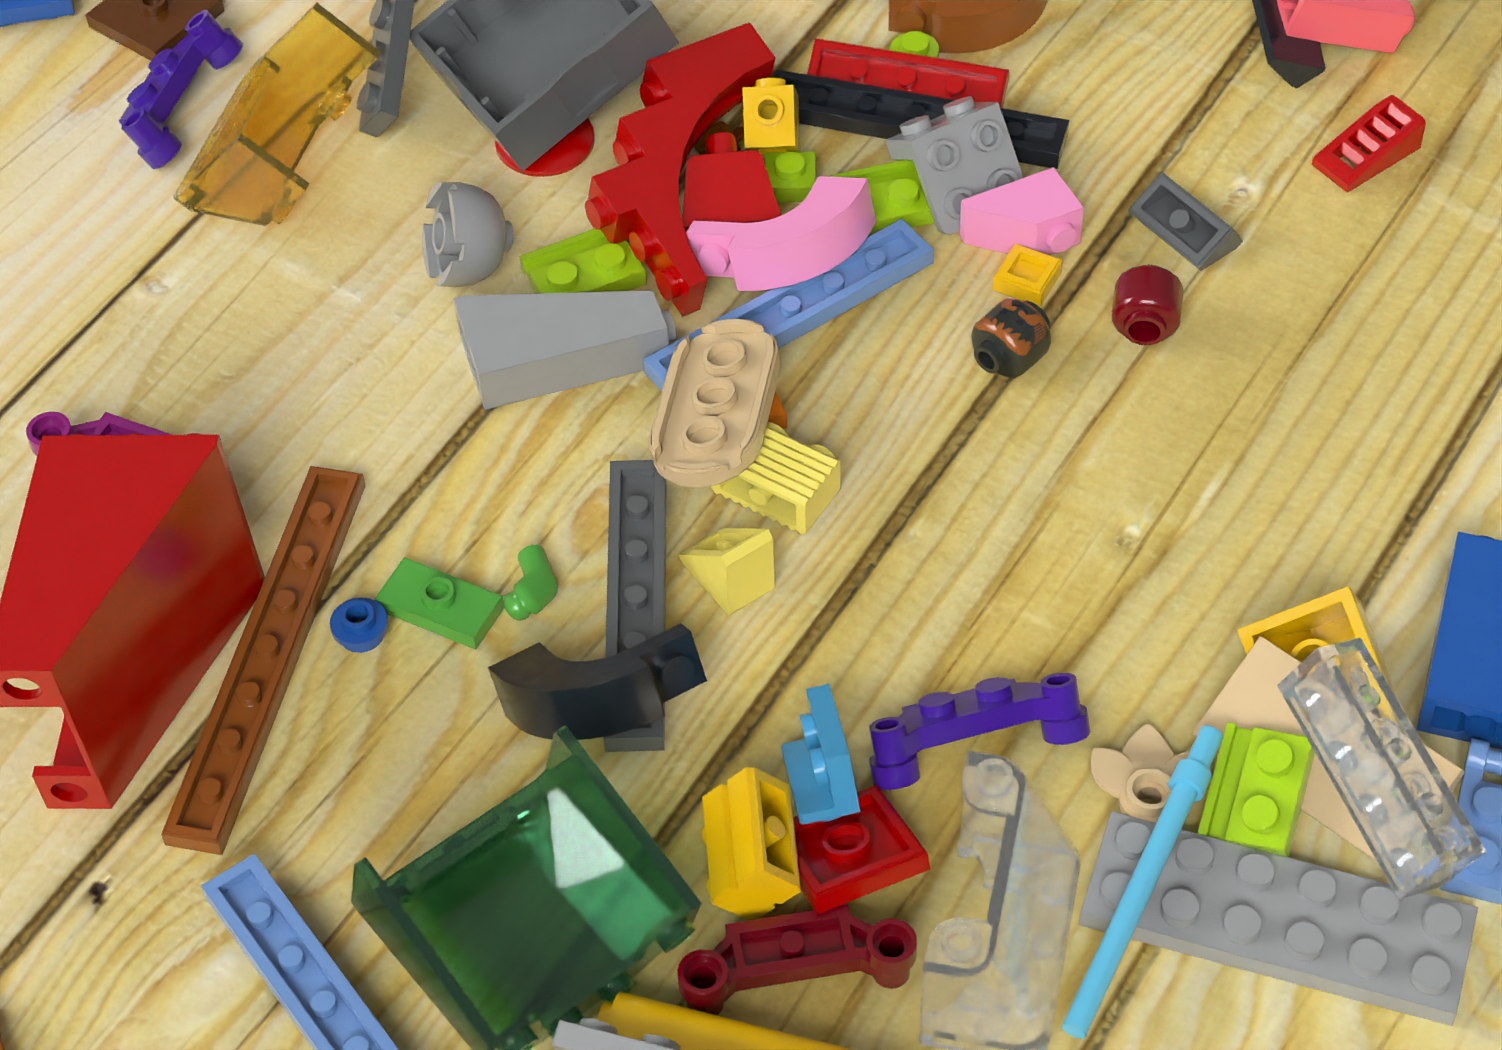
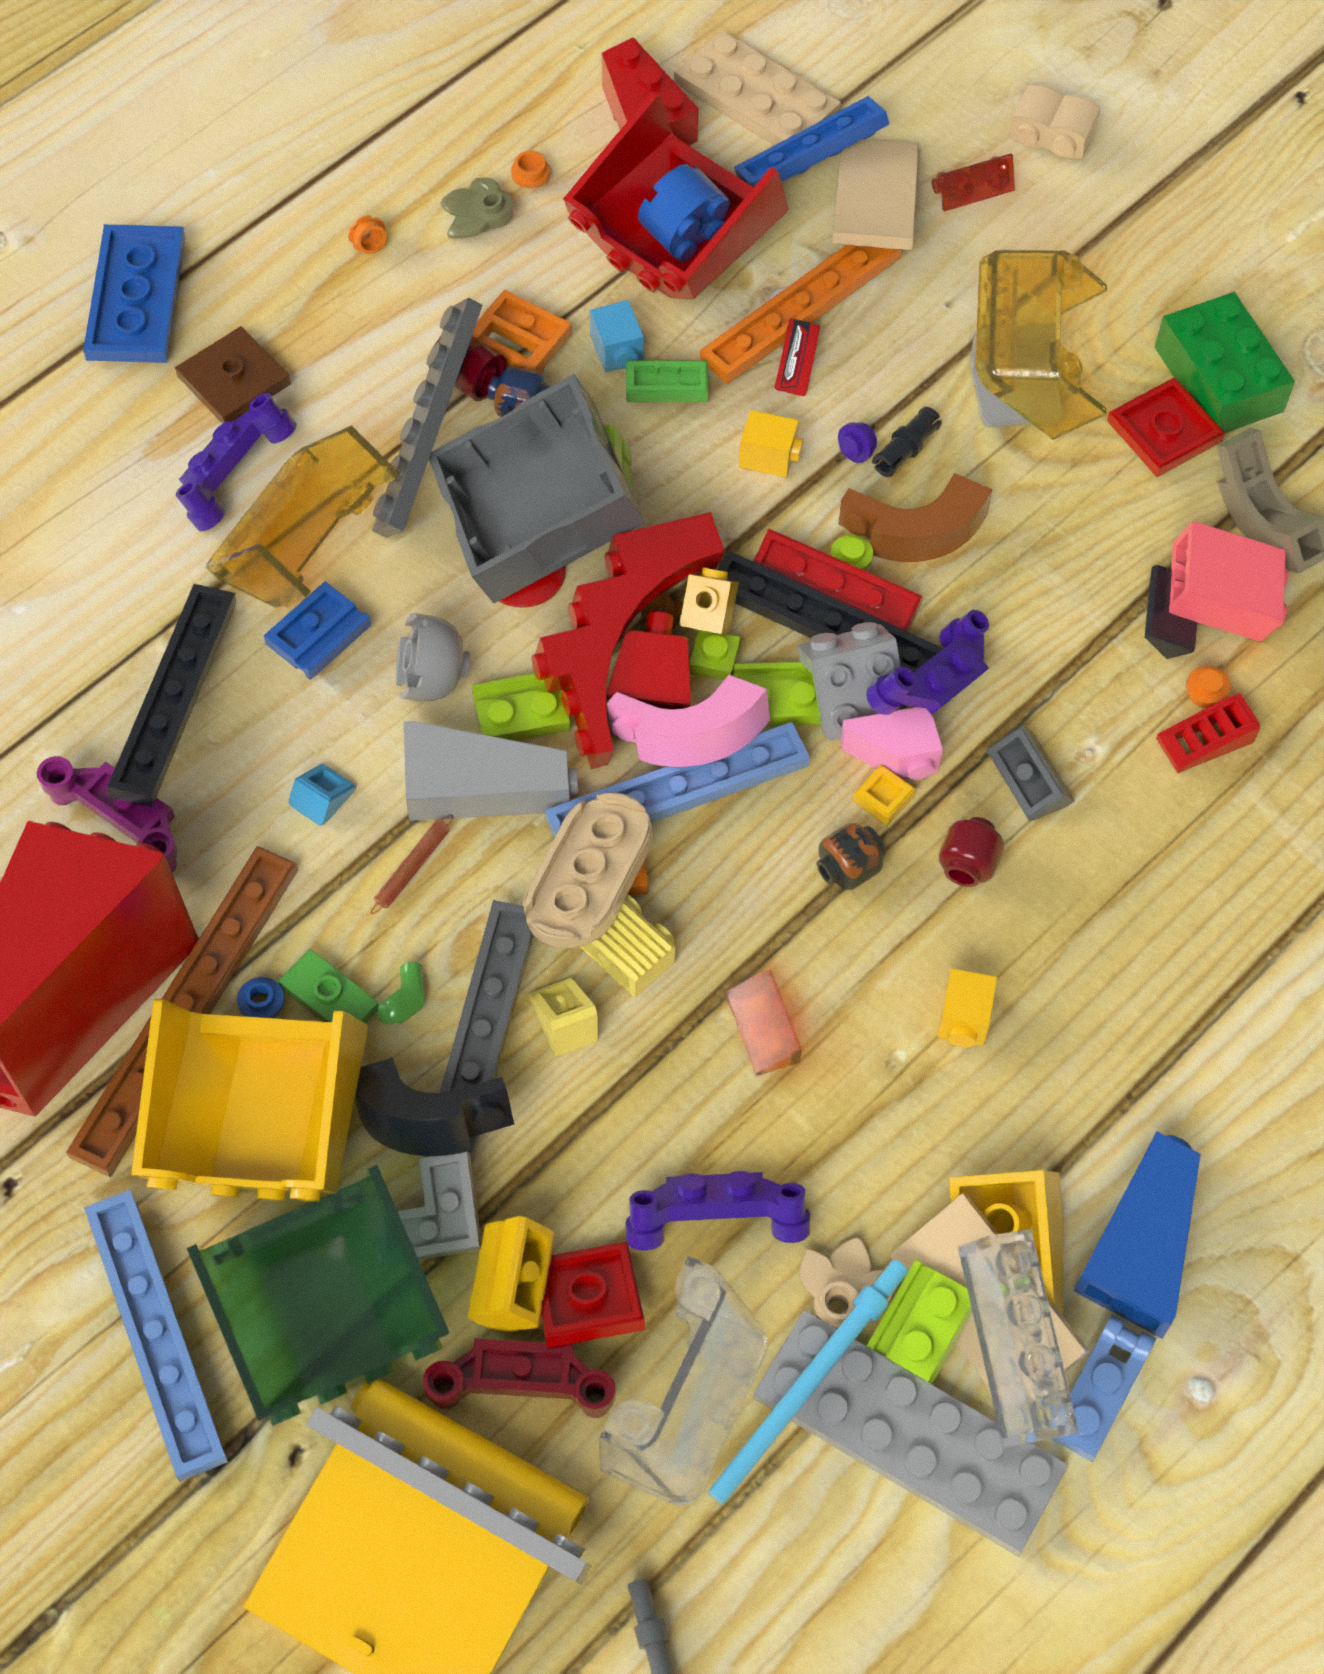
camera: 10 degrees right, 10 degrees up
(169, 326) = (171, 696): none -> black plate
(322, 236) = (317, 630): none -> blue plate
(370, 401) = (320, 793): none -> dark azure slope
(380, 724) = (247, 1102): none -> yellow windscreen
(508, 433) = (386, 886): none -> red piece
(654, 783) = (450, 1213): none -> light grey plate
(821, 763) = (584, 1218): dark azure bracket -> none
(967, 526) = (764, 1024): none -> clear orange slope
(1053, 141) = (939, 677): none -> dark purple plate
(1195, 460) = (967, 1008): none -> yellow brick
(1350, 101) = (1207, 686): none -> orange plate

